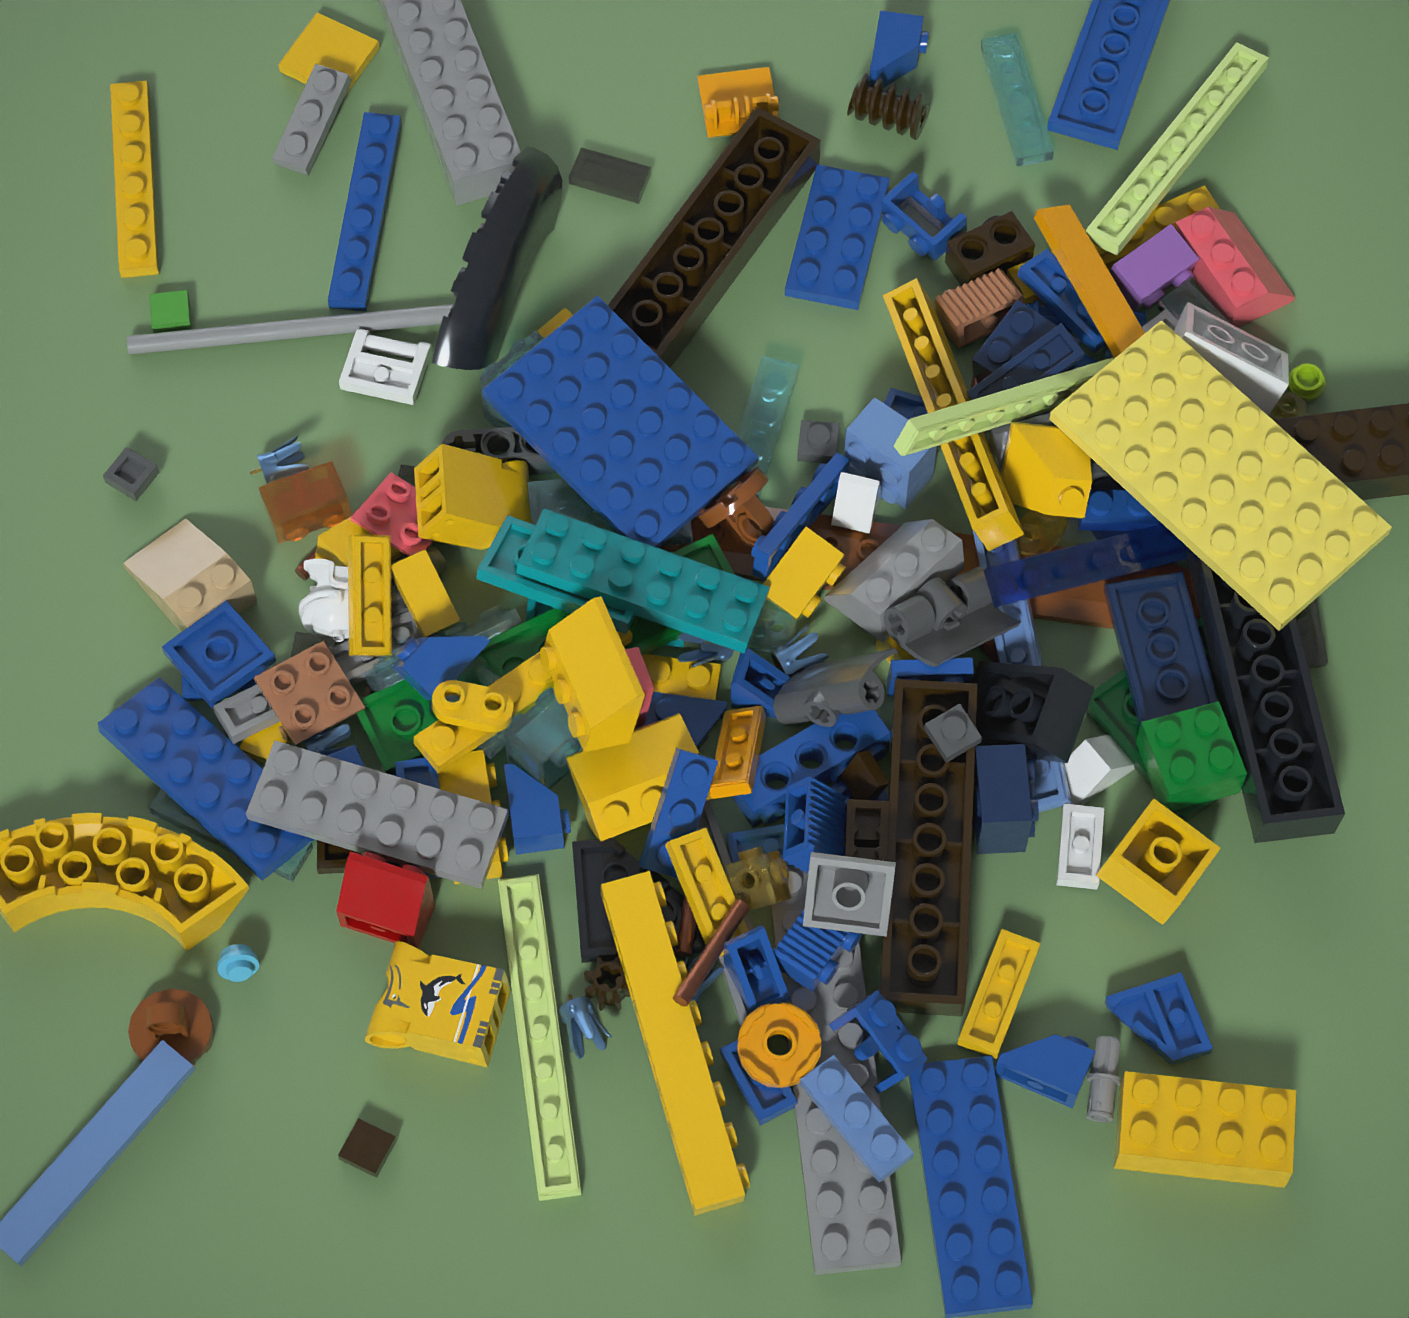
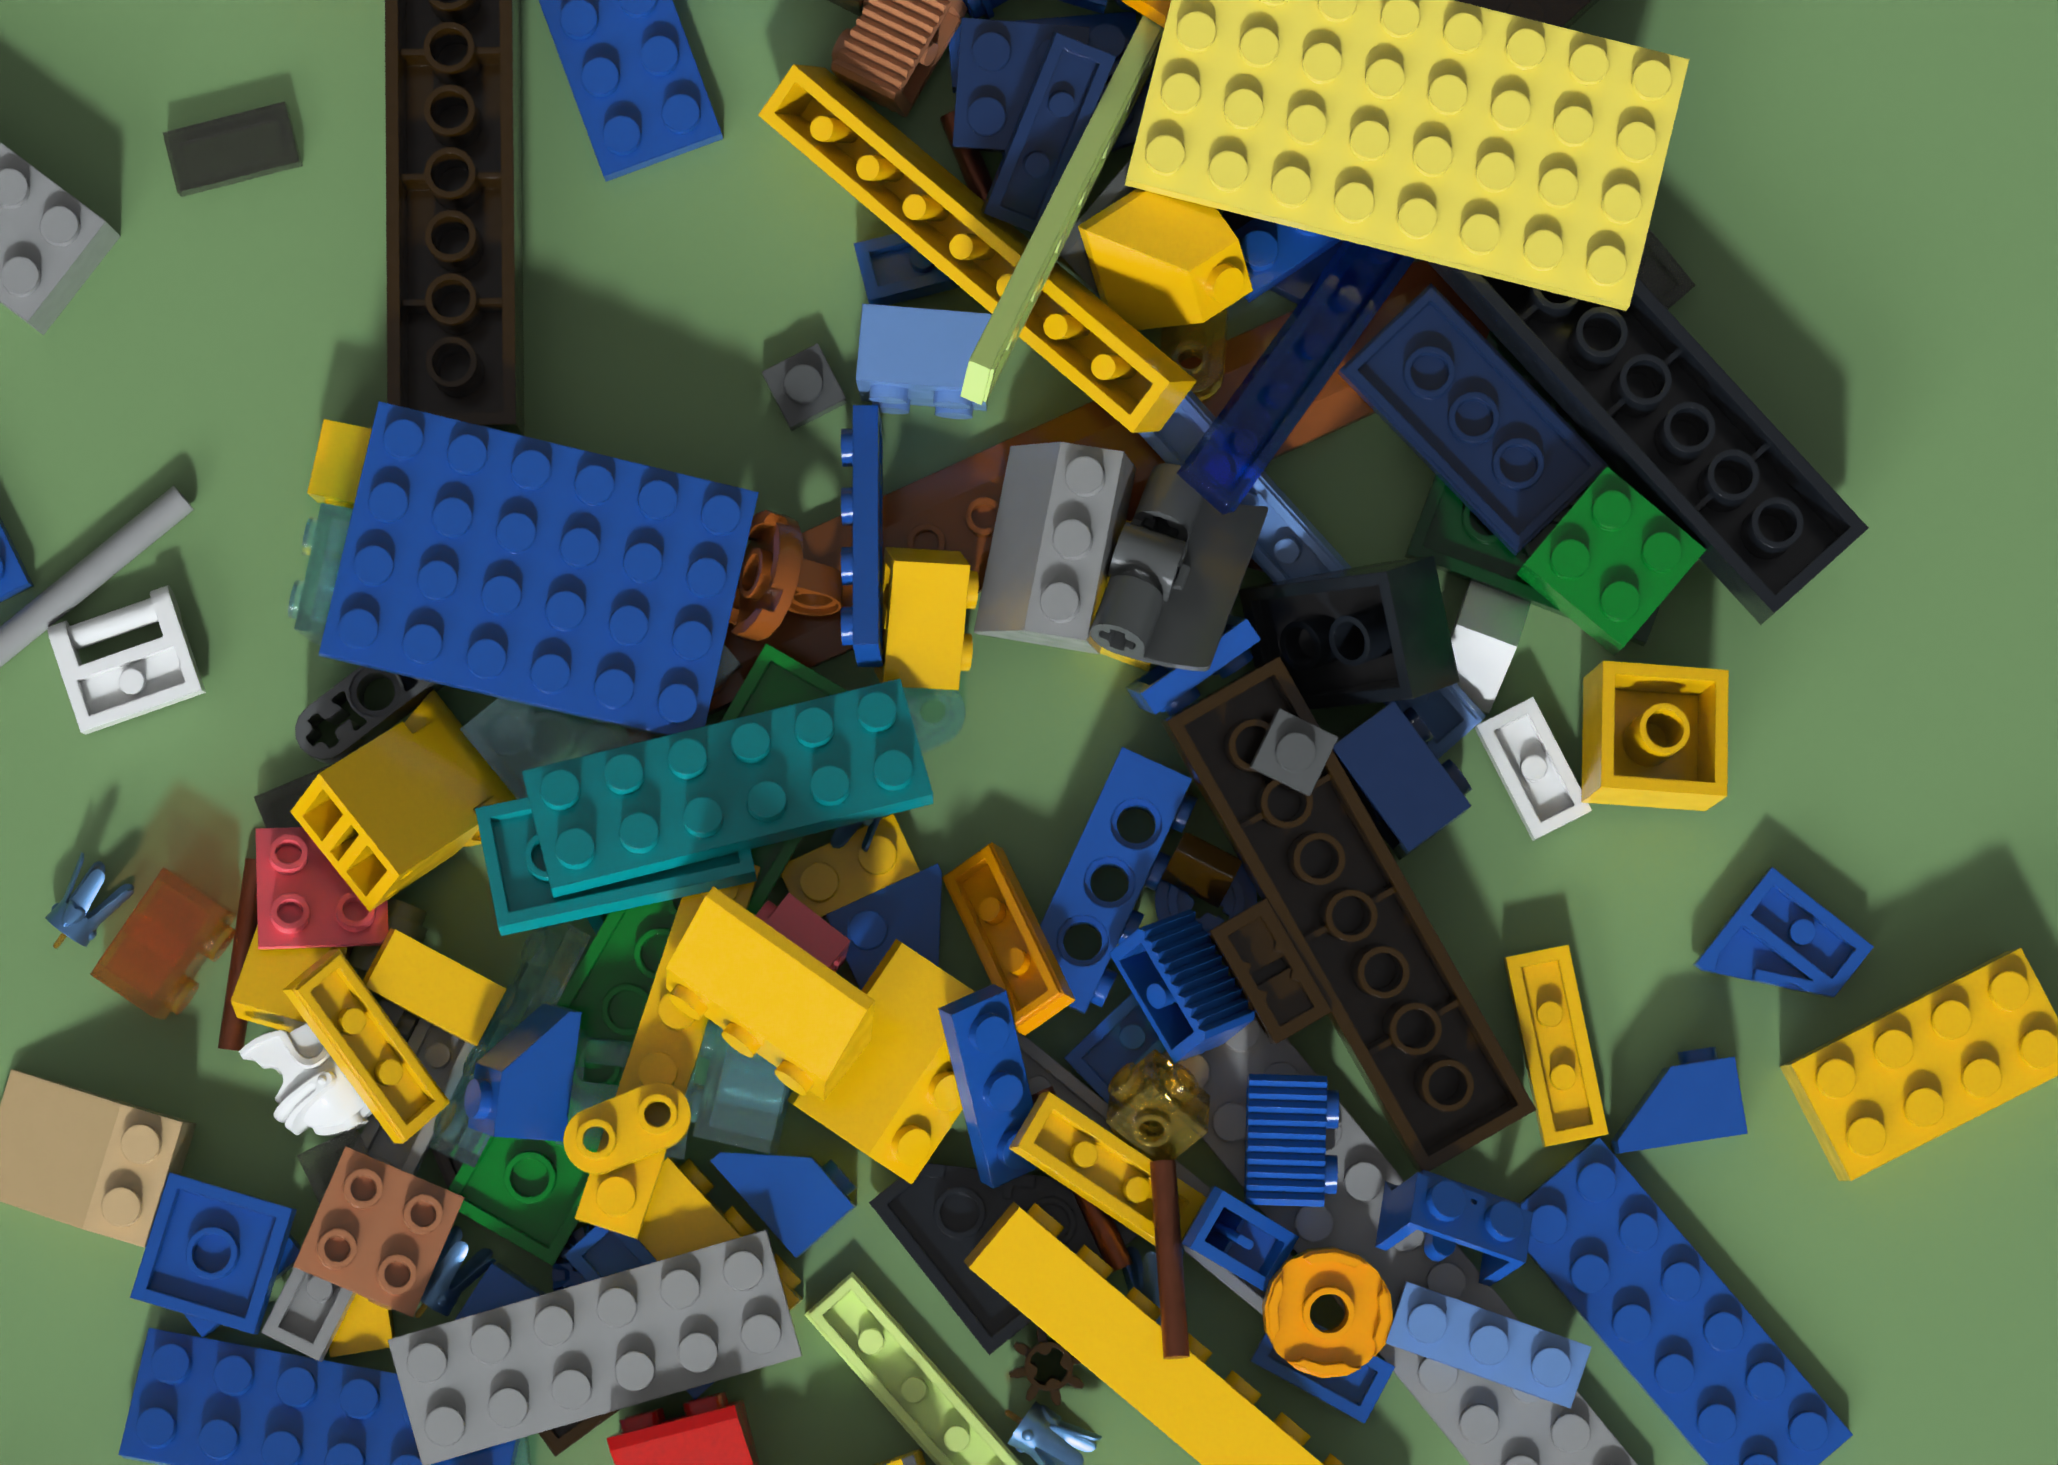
camera: 30 degrees left, 20 degrees up
(498, 257) = (186, 410): black brick -> none
(756, 683) = (978, 813): blue slope -> none
(767, 409) = (706, 395): clear light blue plate -> none
(786, 655) = (982, 736): flat silver piece -> none
(831, 688) = (1079, 767): dark grey panel -> none
(849, 894) = (1302, 1070): light grey slope -> none
(856, 502) = (926, 461): white slope -> none
(1103, 1080) = (1760, 1077): light grey axle -> none

